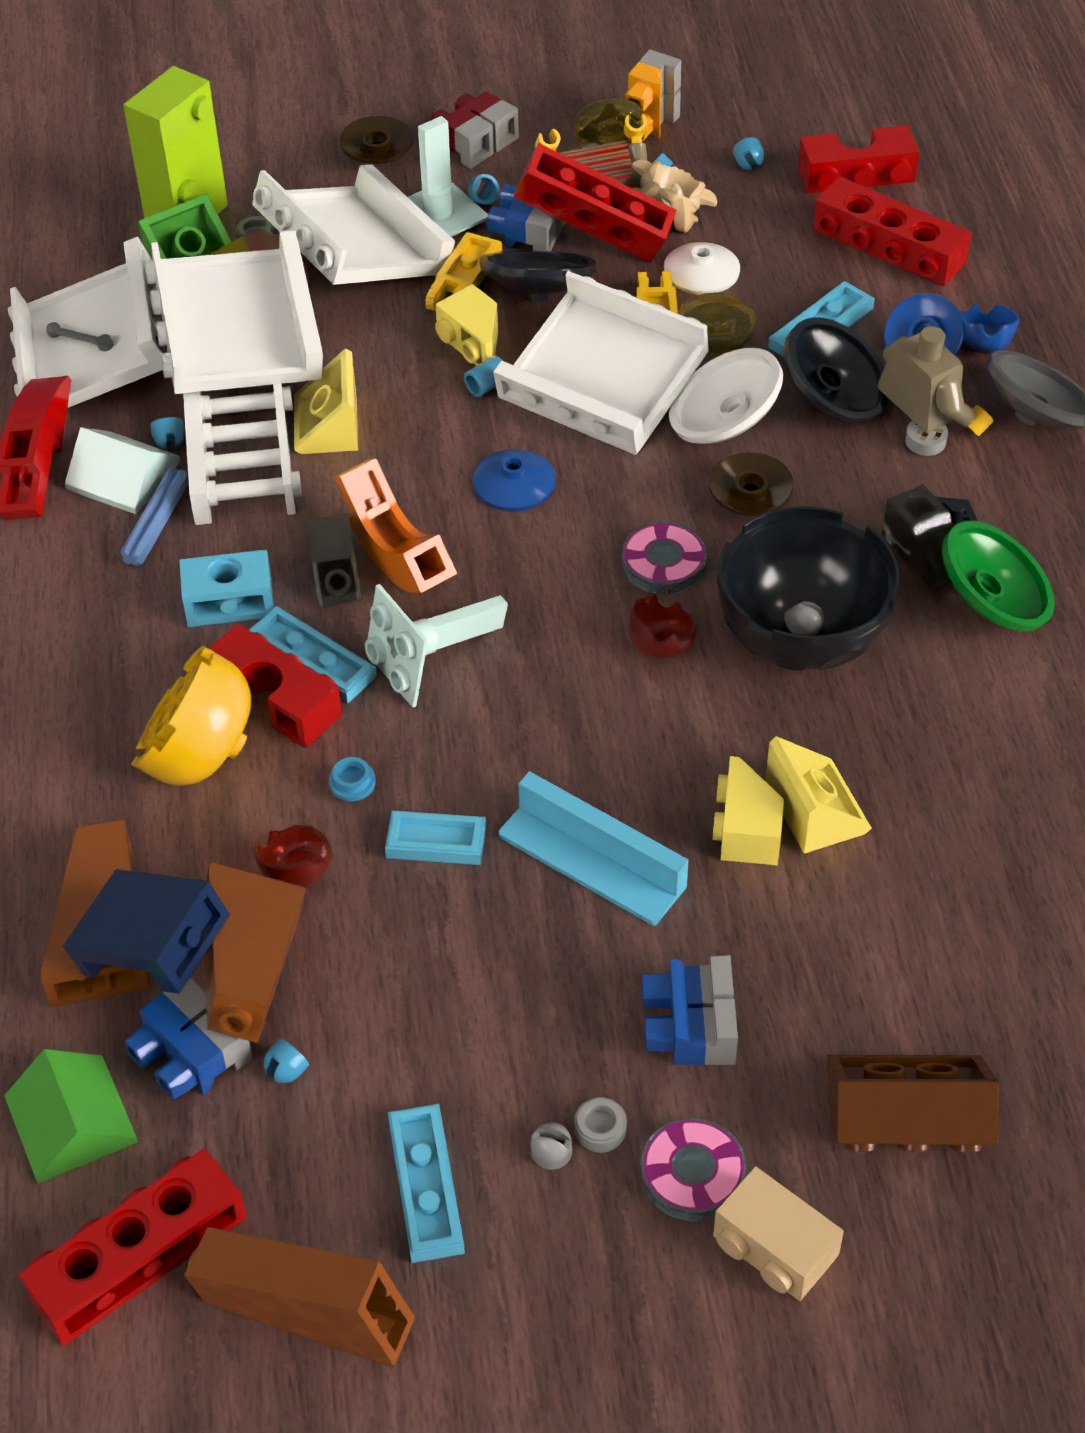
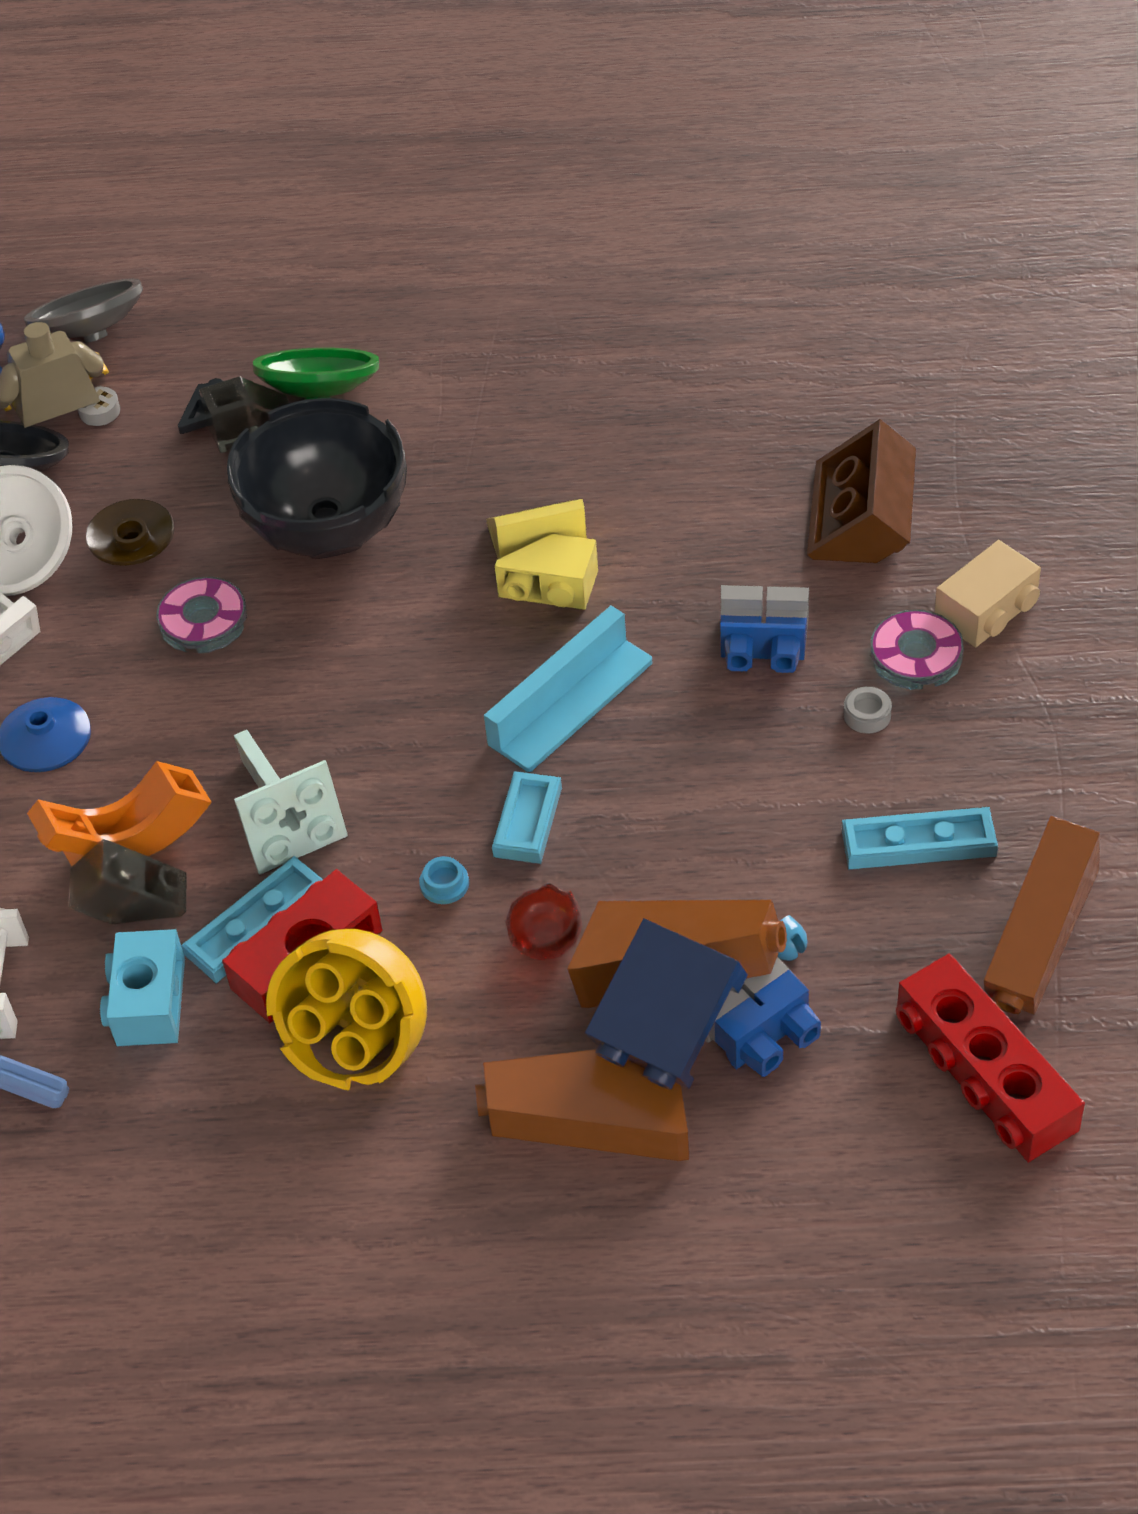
camera: 80 degrees left, 0 degrees up
(68, 1112) = (833, 1130): bright green slope -> none
(547, 1151) = (896, 748): light grey hinge -> none
(661, 629) = (309, 614): clear red hair -> none
(804, 619) = (339, 495): light grey hinge -> none

